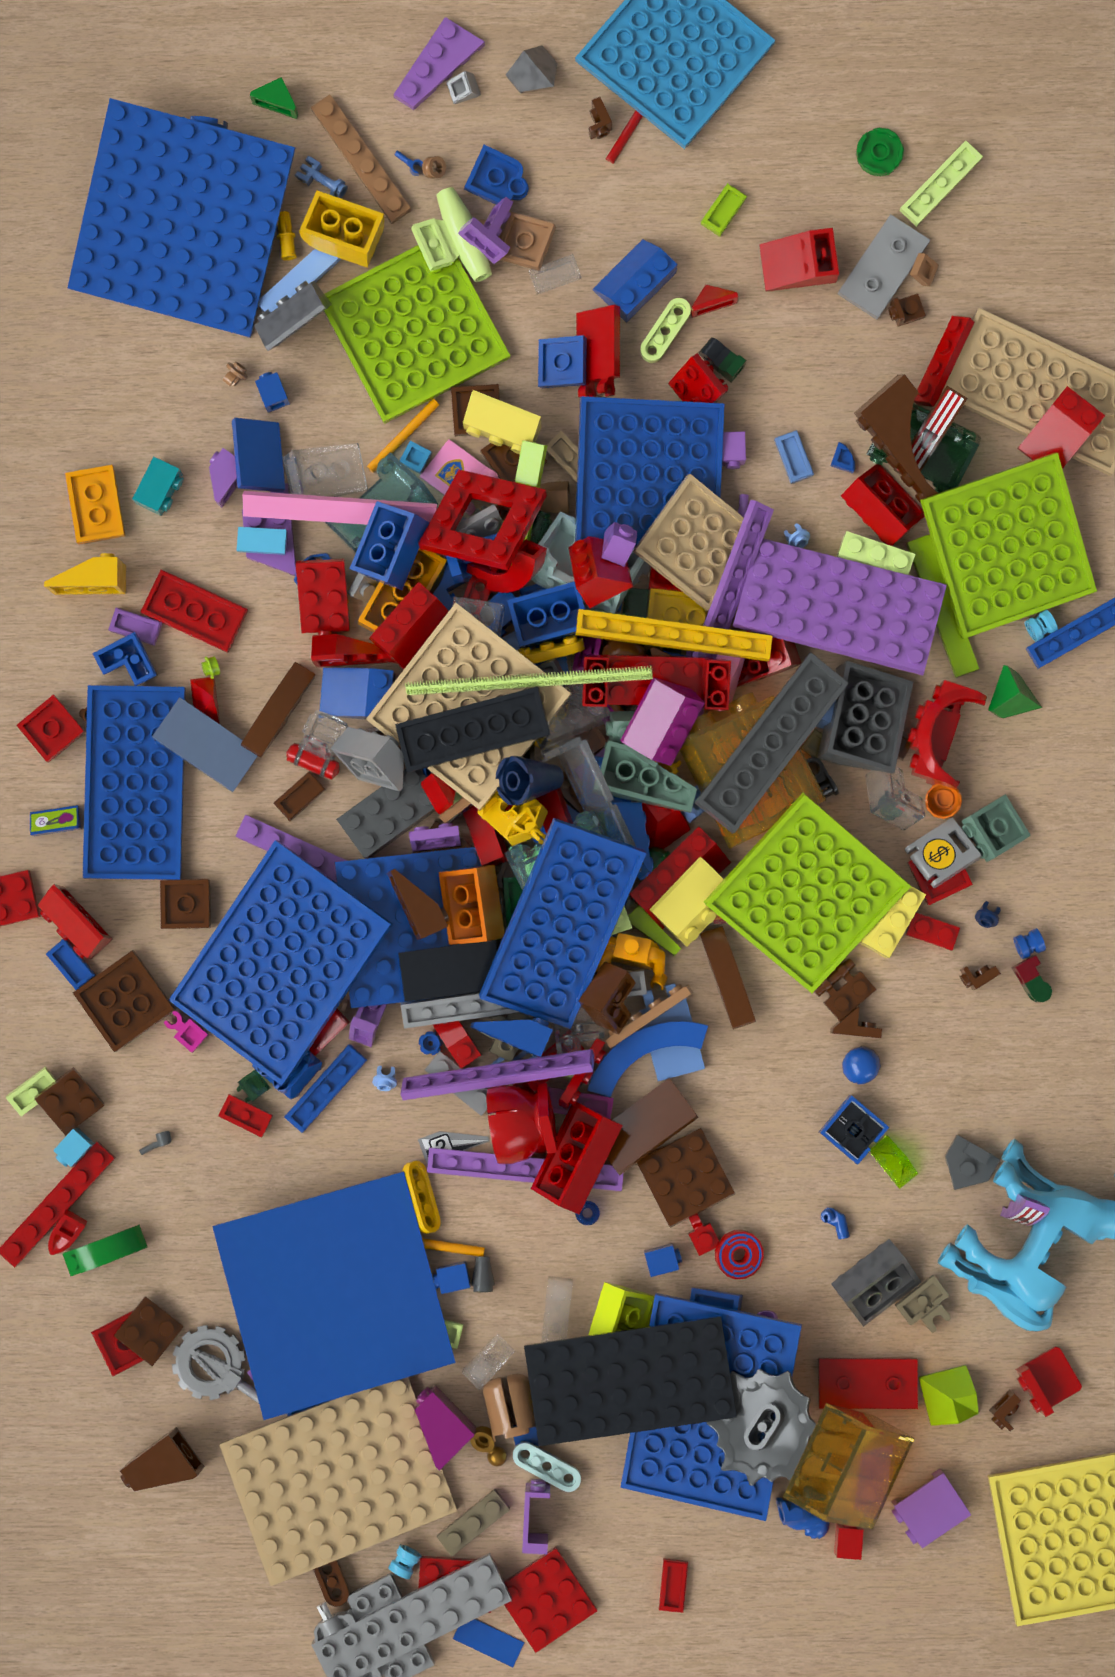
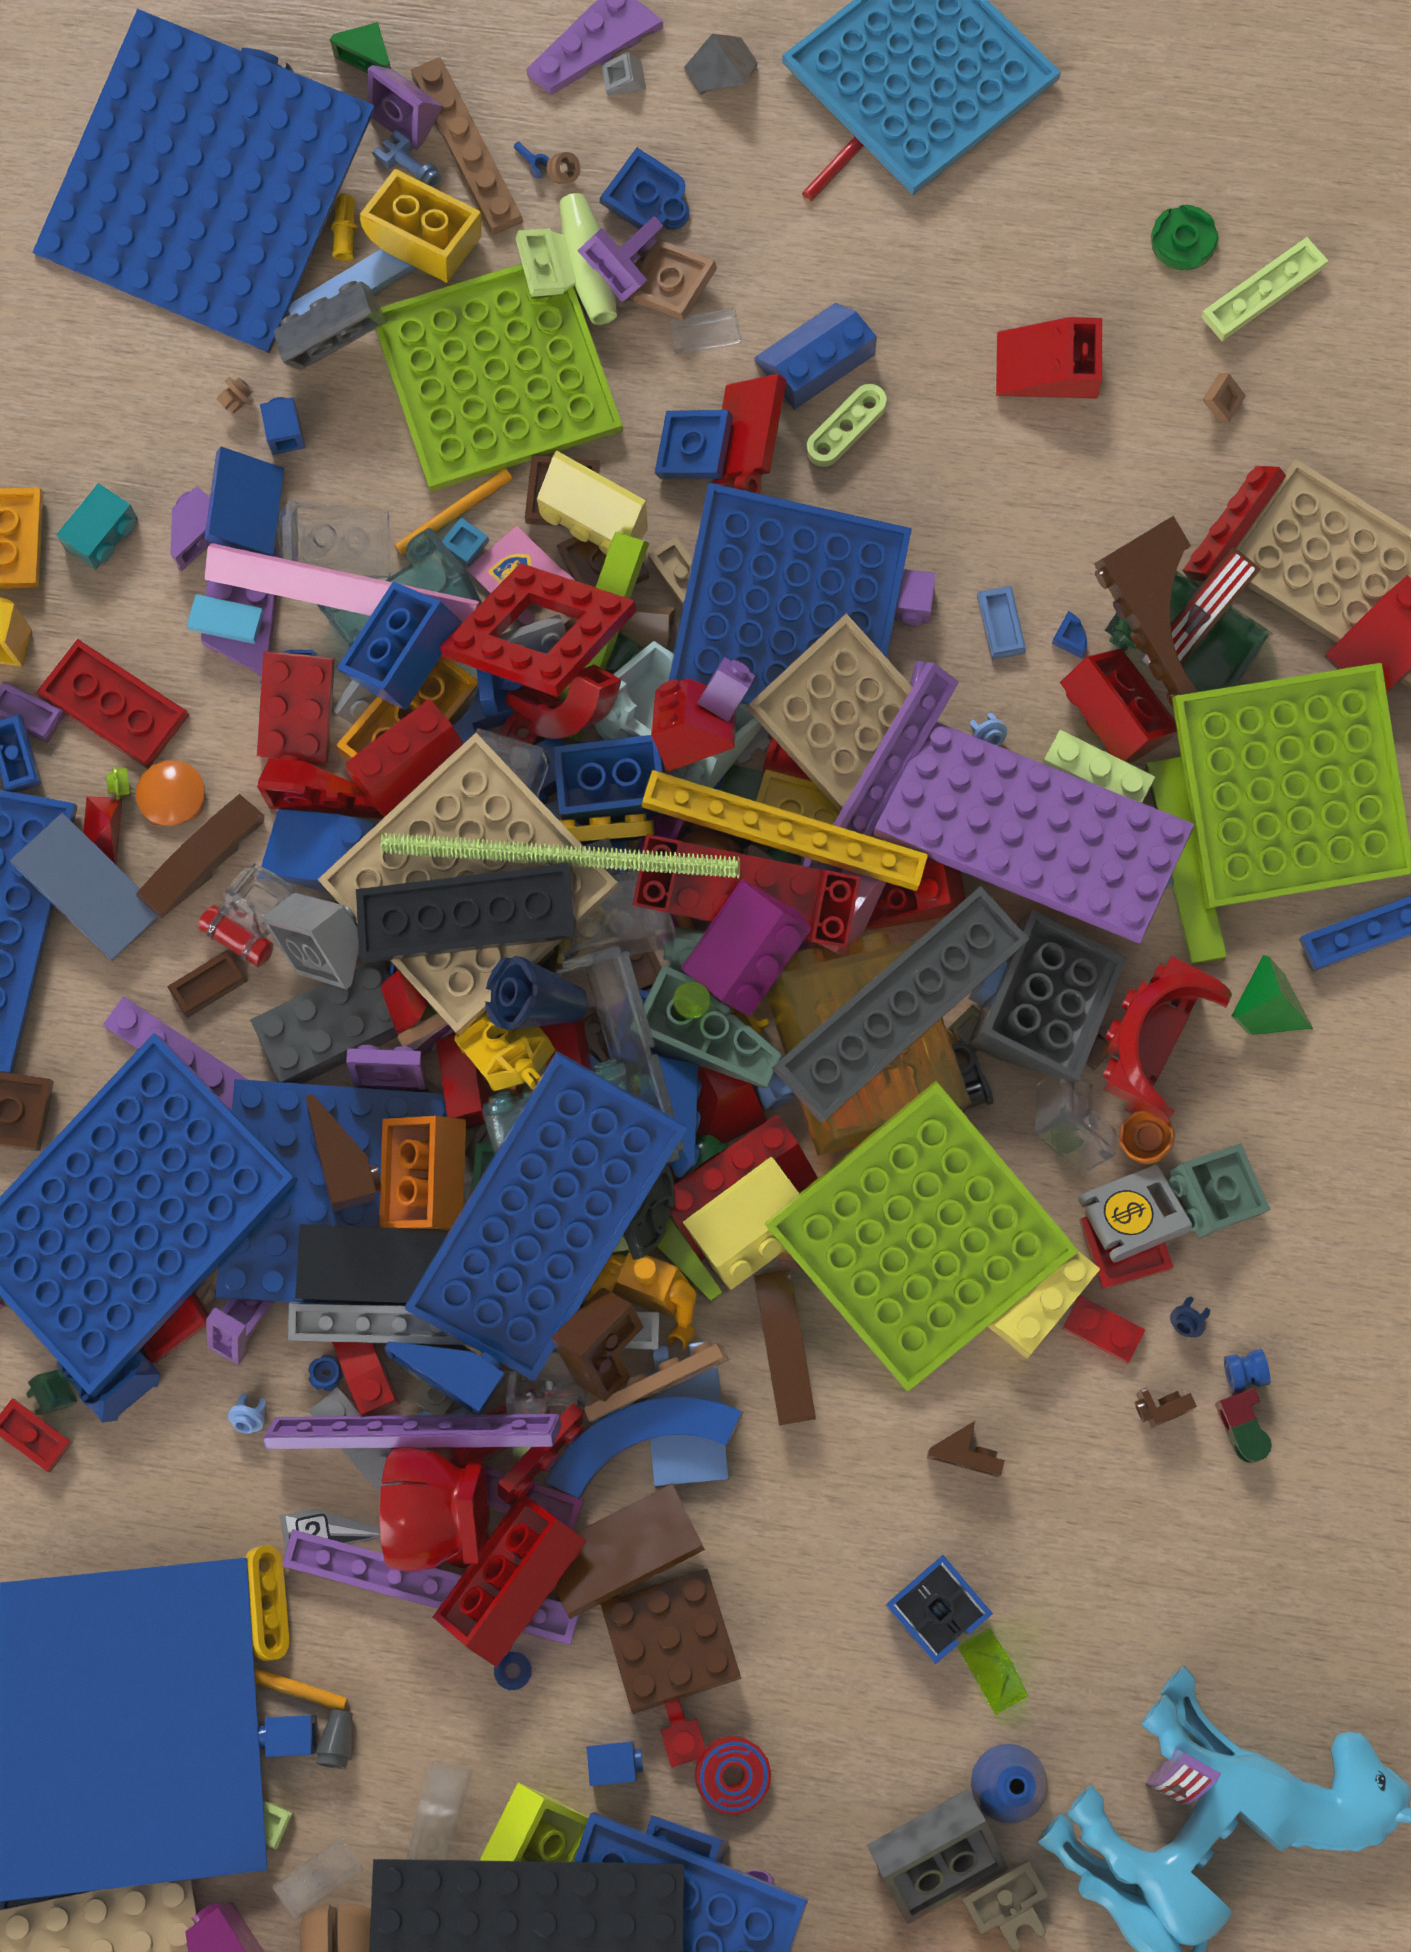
camera: 10 degrees right, 10 degrees down
(247, 668) = (170, 793): none -> orange dish
(310, 137) = (401, 105): none -> medium lavender slope
(325, 1088) = (158, 1415): blue tile -> none
(601, 117) = (804, 143): reddish brown bracket -> none
(630, 915) = (652, 1217): none -> pearl dark grey tile
(632, 762) = (691, 1000): none -> clear neon green plate
(697, 382) = (880, 495): red plate -> none
(713, 299) = (920, 395): red slope -> none
(722, 359) = (921, 476): leg -> none
(723, 210) = (954, 281): lime tile -> none
(837, 1219) = (891, 1746): blue arm -> none
(850, 994) = (964, 1404): reddish brown plate -> none
(861, 1065) = (965, 1513): blue hair -> none
(883, 267) = (1166, 387): light grey plate -> none
(906, 310) = (1191, 448): reddish brown bracket -> none
(907, 1224) = (992, 1779): none -> blue cone
(969, 1163) = (1108, 1693): dark grey plate -> none
(1041, 625) = (1326, 908): medium azure wheel -> none

